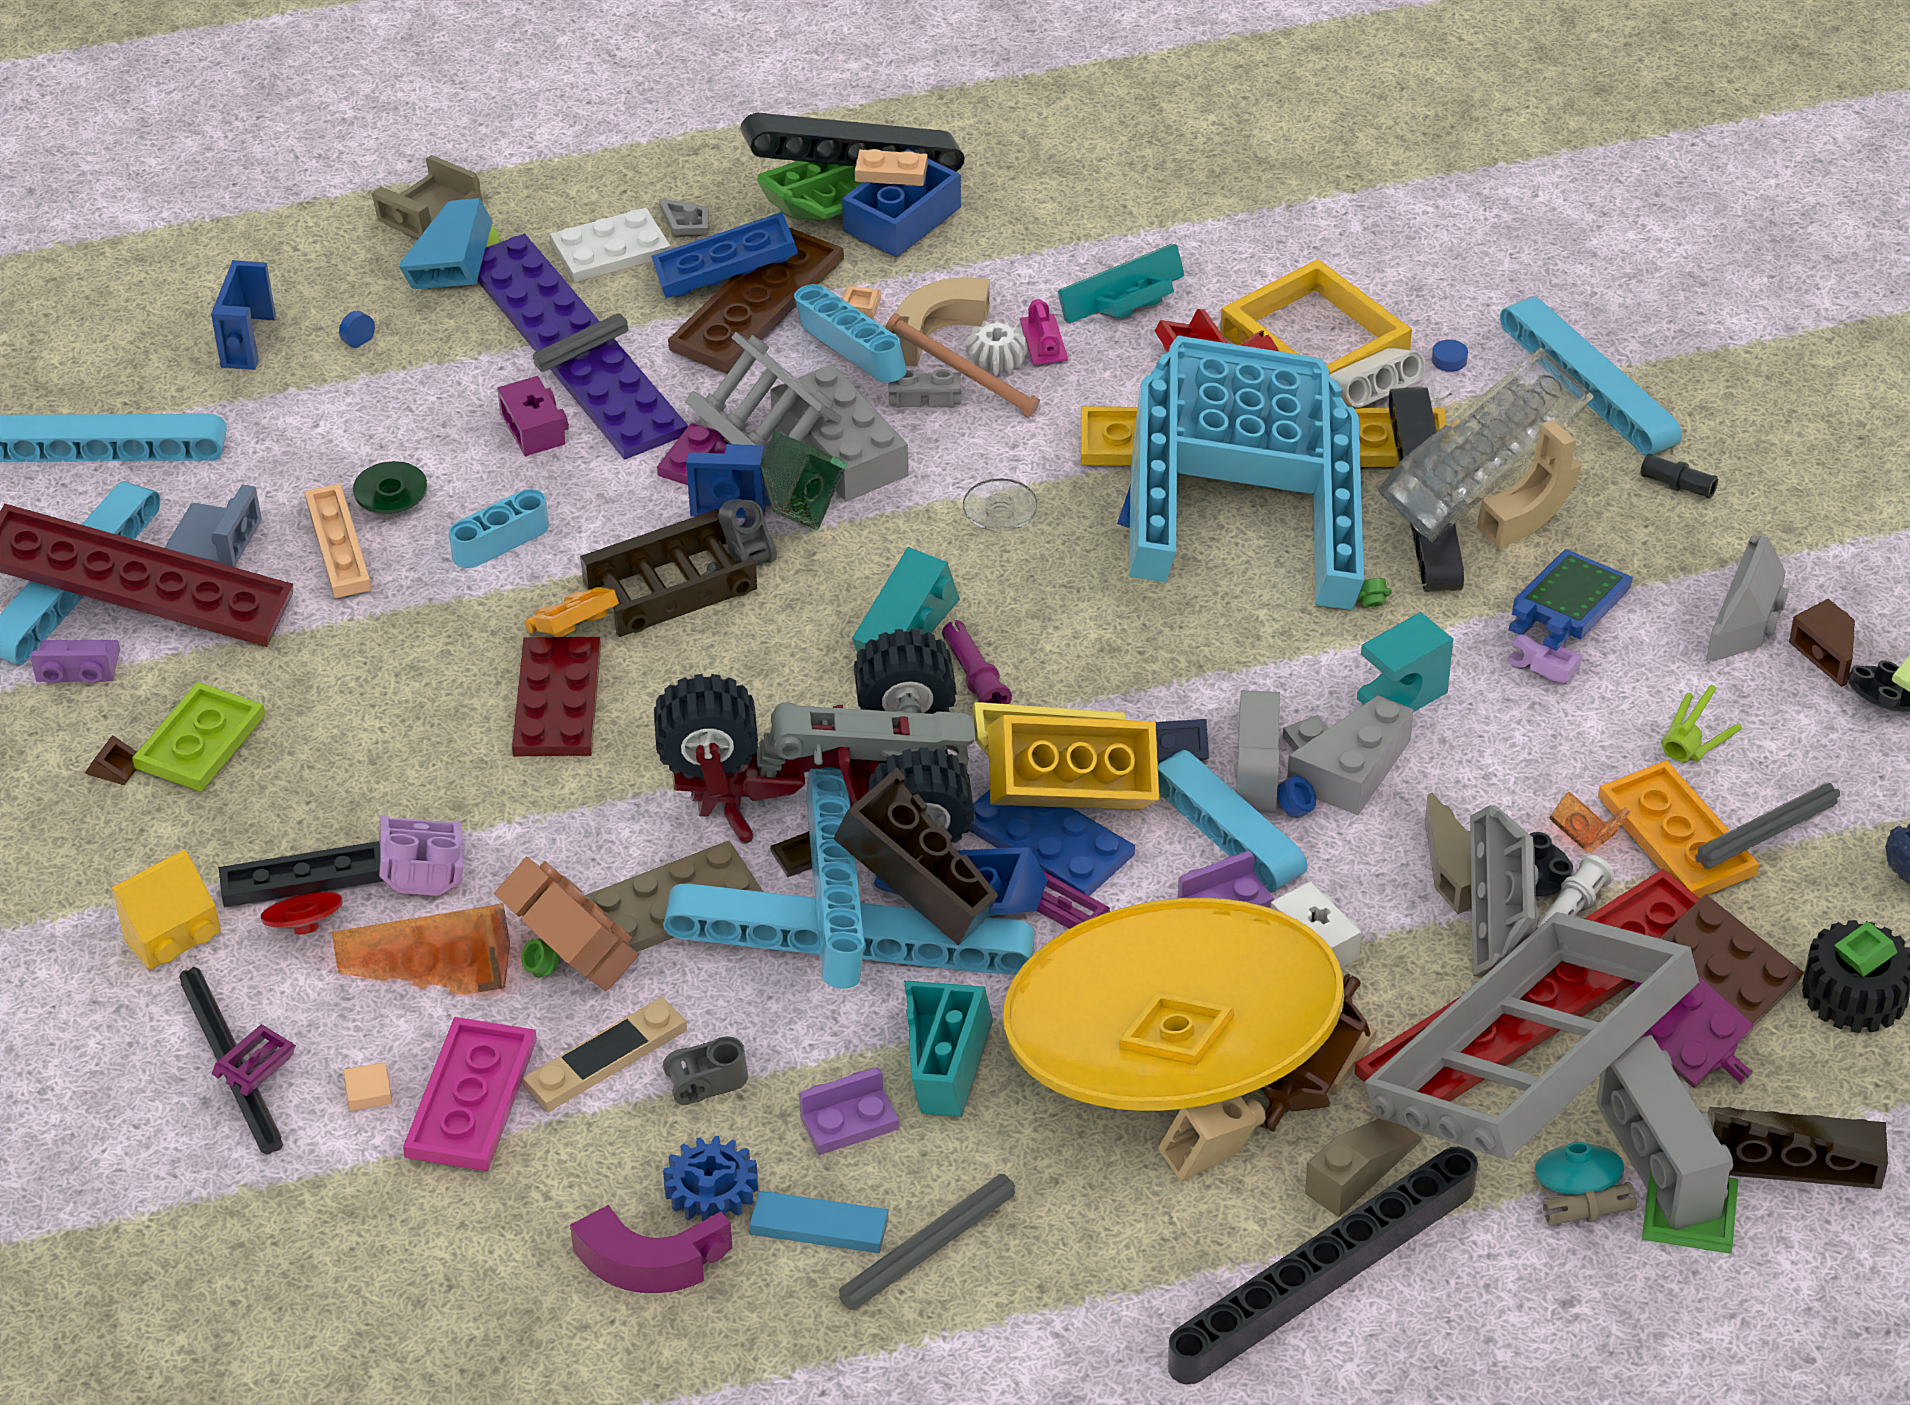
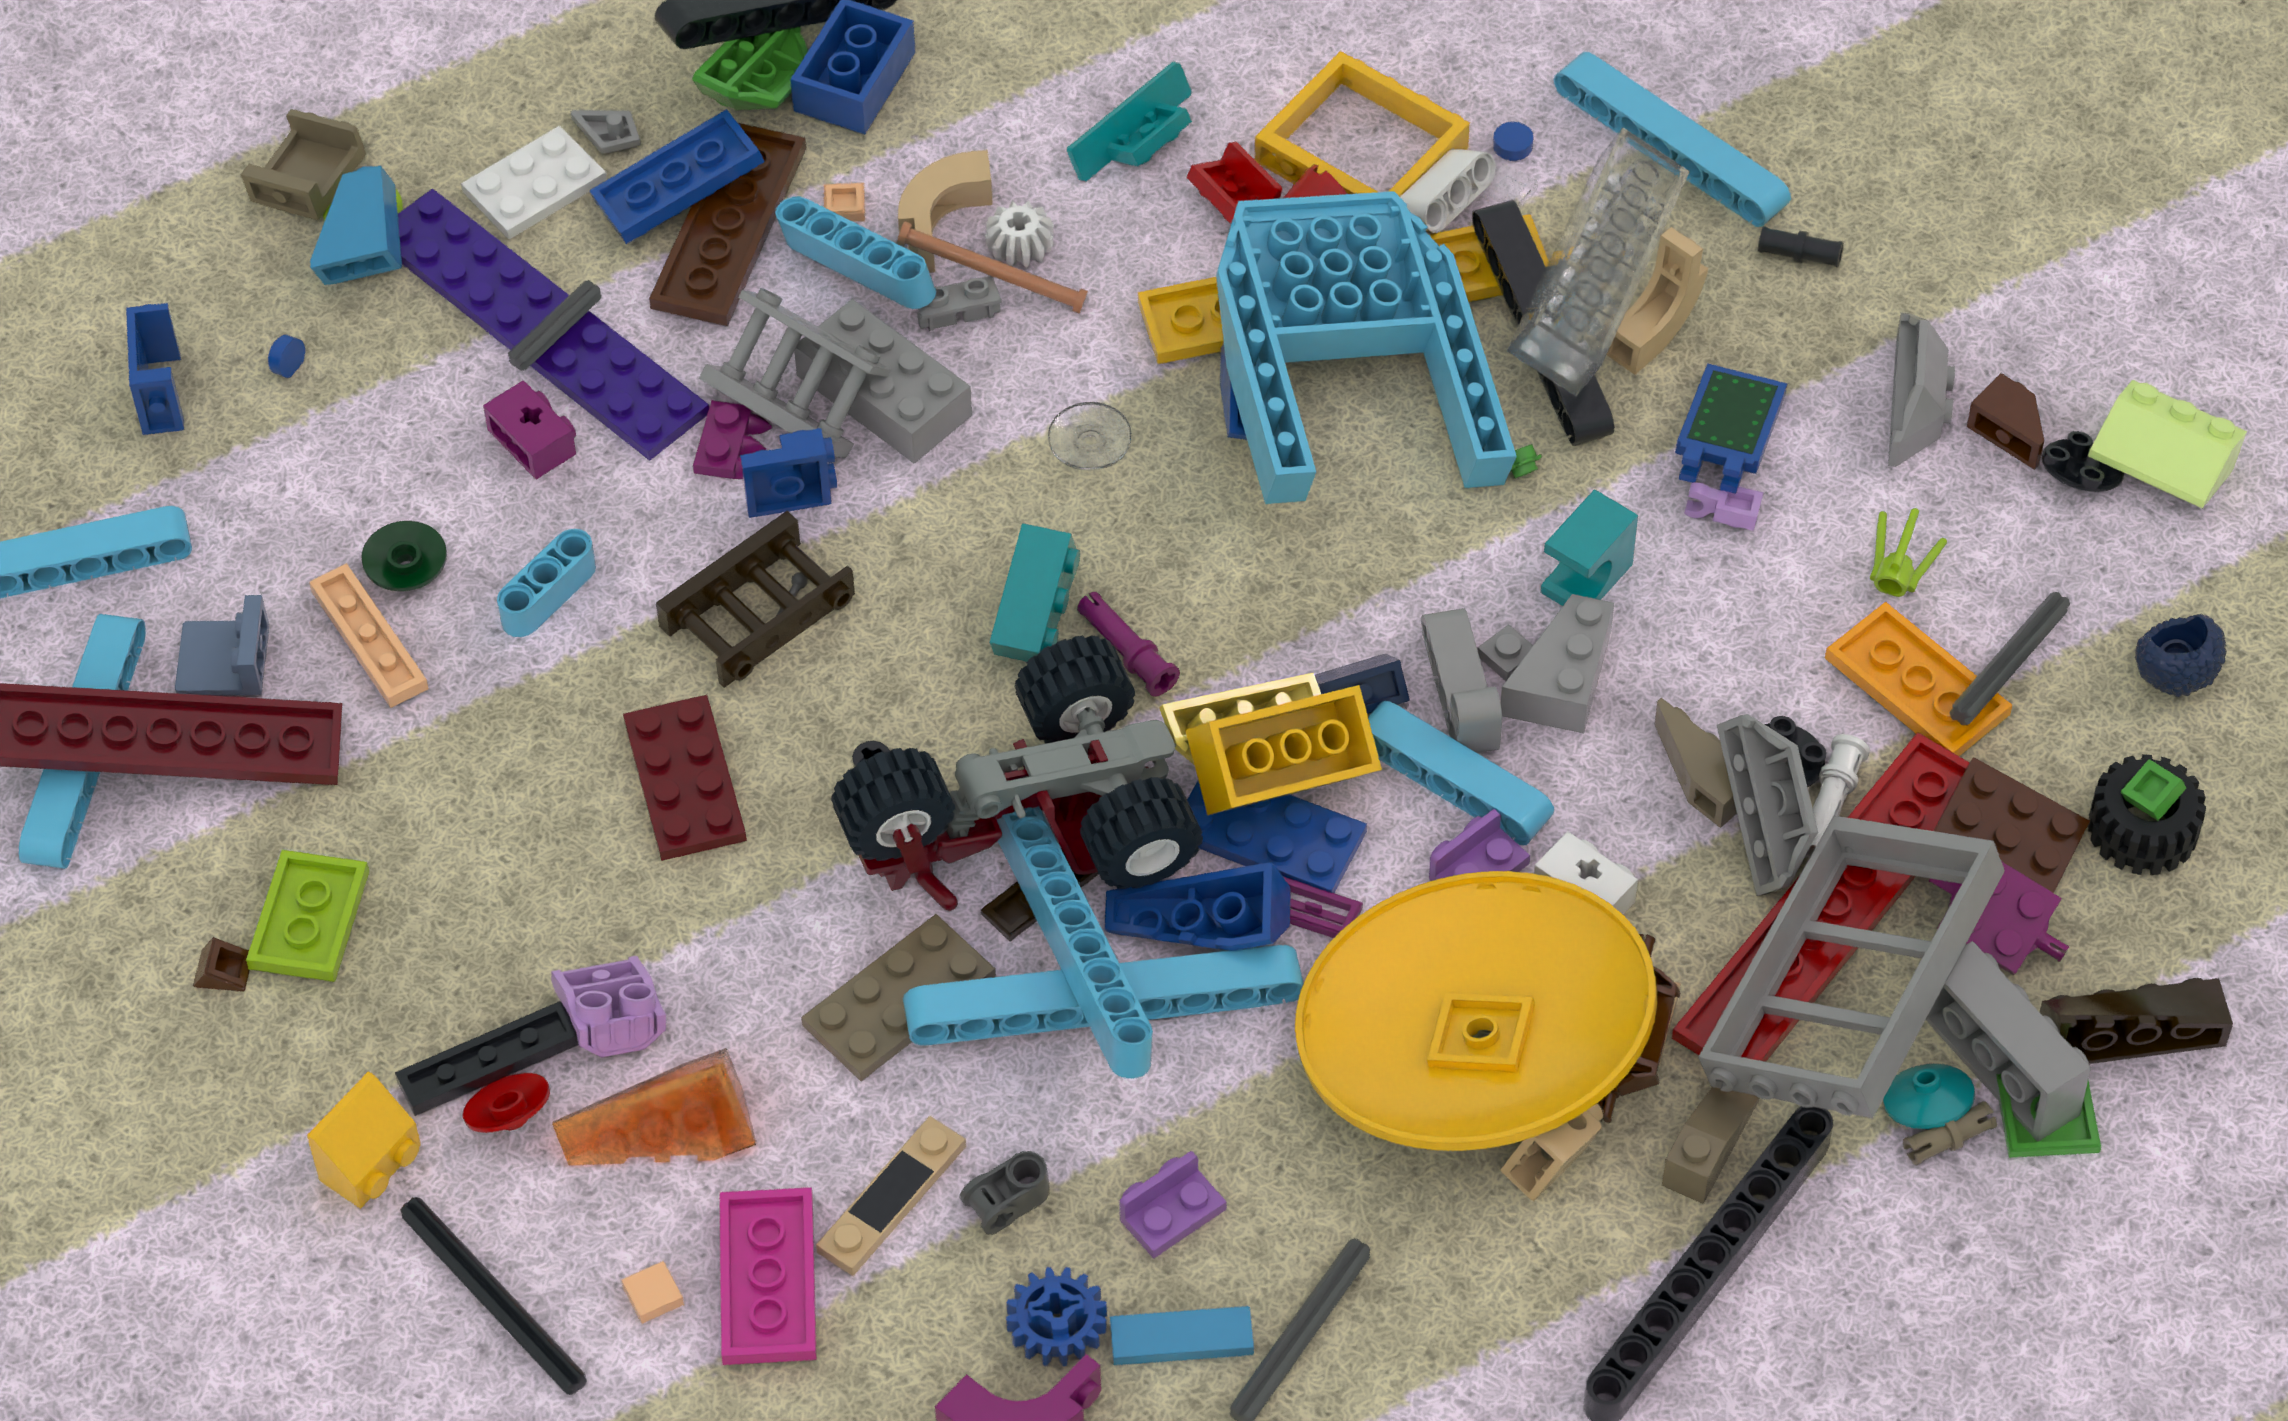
camera: 15 degrees left, 10 degrees up
(75, 660) = (129, 850): medium lavender bracket -> none
(267, 1068) = (515, 1316): magenta tile -> none
(539, 958) = (776, 1103): bright green plate -> none
(568, 922) = (808, 1057): nougat piece -> none
(576, 607) = (668, 672): light orange plate -> none
(750, 538) = (832, 540): dark grey piece -> none
(800, 479) = (869, 456): clear green slope -> none
(891, 167) = (834, 28): light nougat plate -> none
(915, 858) = (1165, 908): dark brown wedge -> none
(945, 1042) = (1249, 1102): teal wedge -> none
(1042, 334) = (1063, 205): dark pink hinge -> none
(1296, 796) = (1518, 728): blue tile -> none
(1584, 825) = (1823, 697): clear orange bracket -> none

